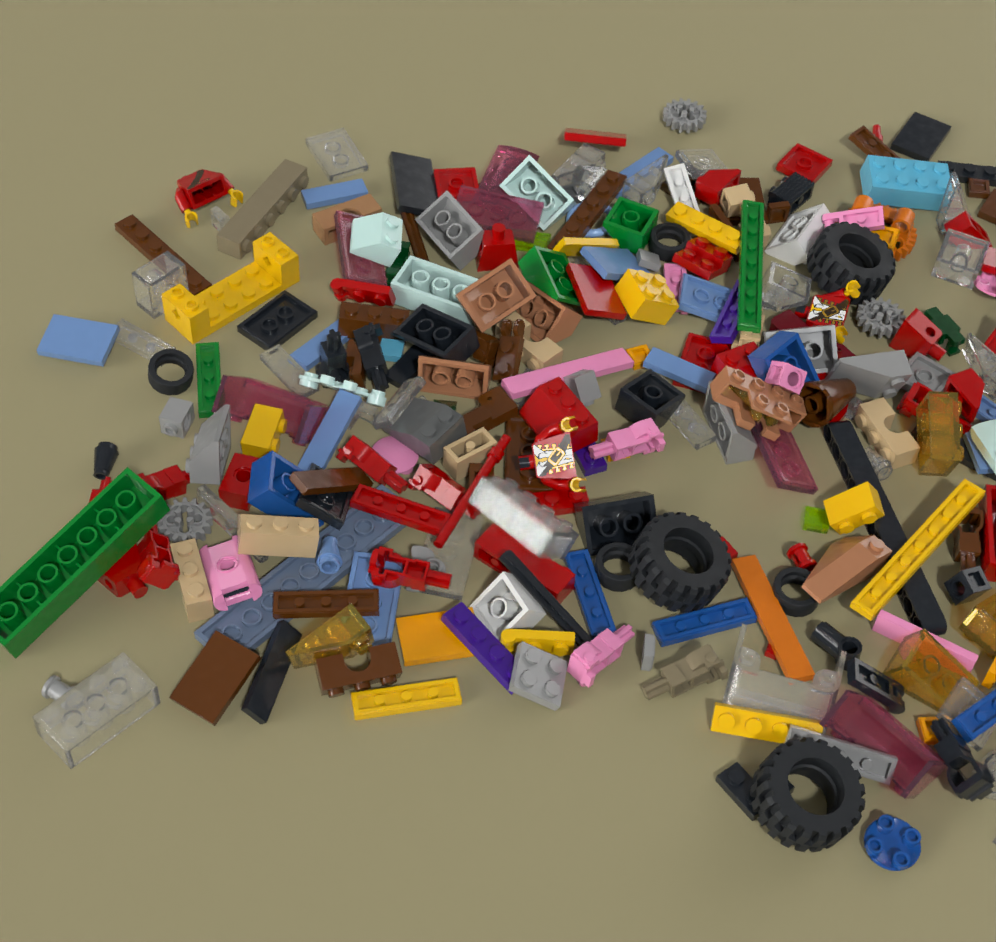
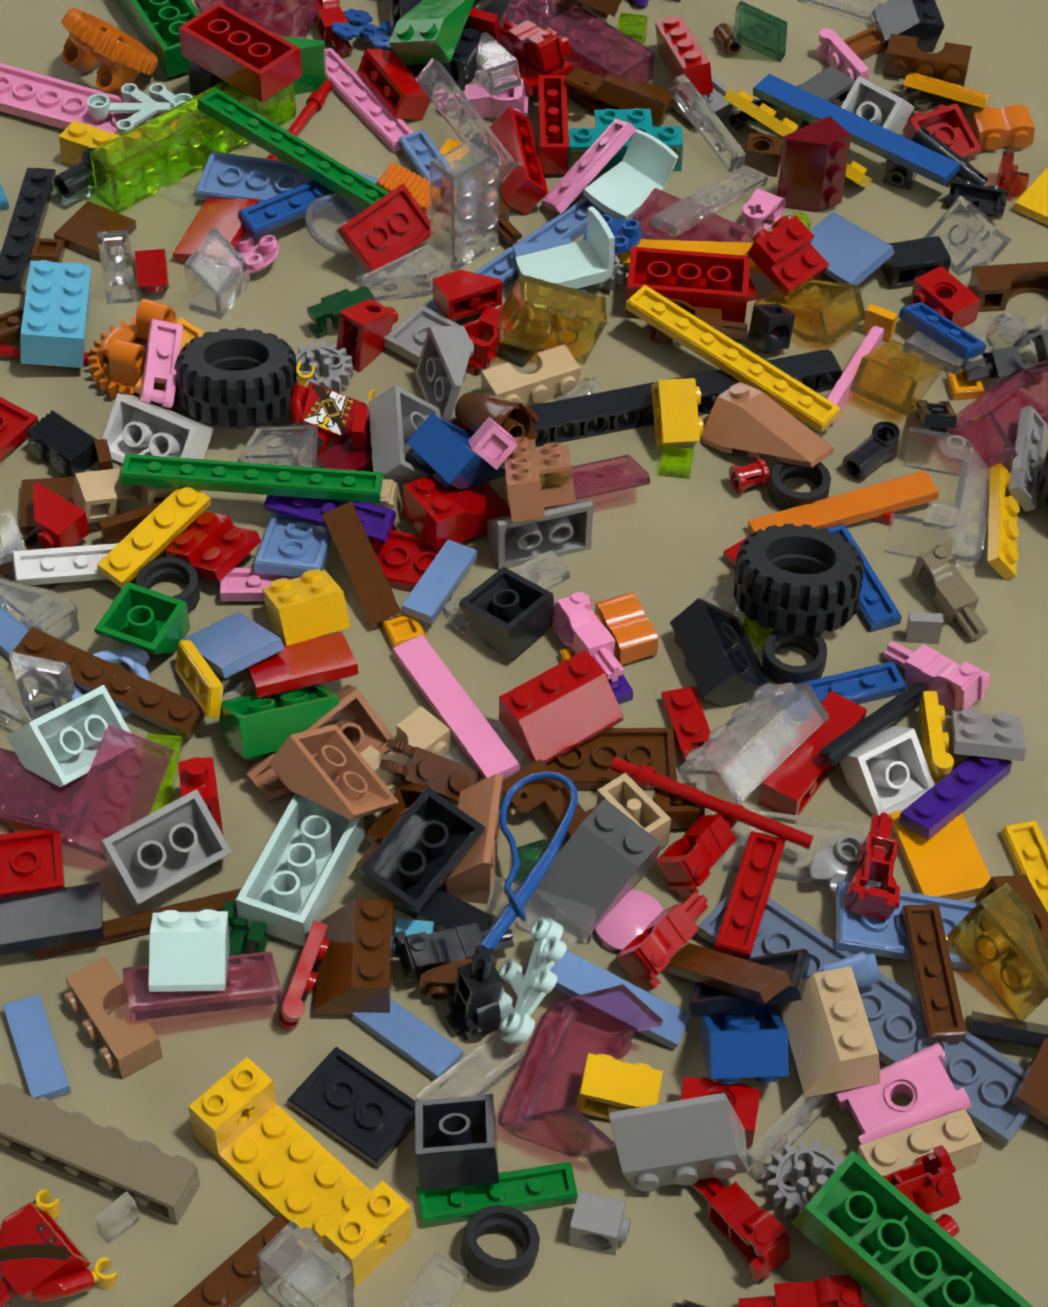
camera: 90 degrees left, 0 degrees up
(235, 349) = (456, 1142): none -> black brick
(402, 383) = (525, 891): none -> blue piece
(554, 457) = (644, 706): torso -> none
(584, 386) = (484, 685): light grey brick -> none
(641, 469) = (628, 626): none -> orange brick
(648, 260) = (208, 613): light grey tile -> none
(689, 327) = (362, 564): none -> reddish brown tile
(808, 319) = (358, 427): none -> red plate

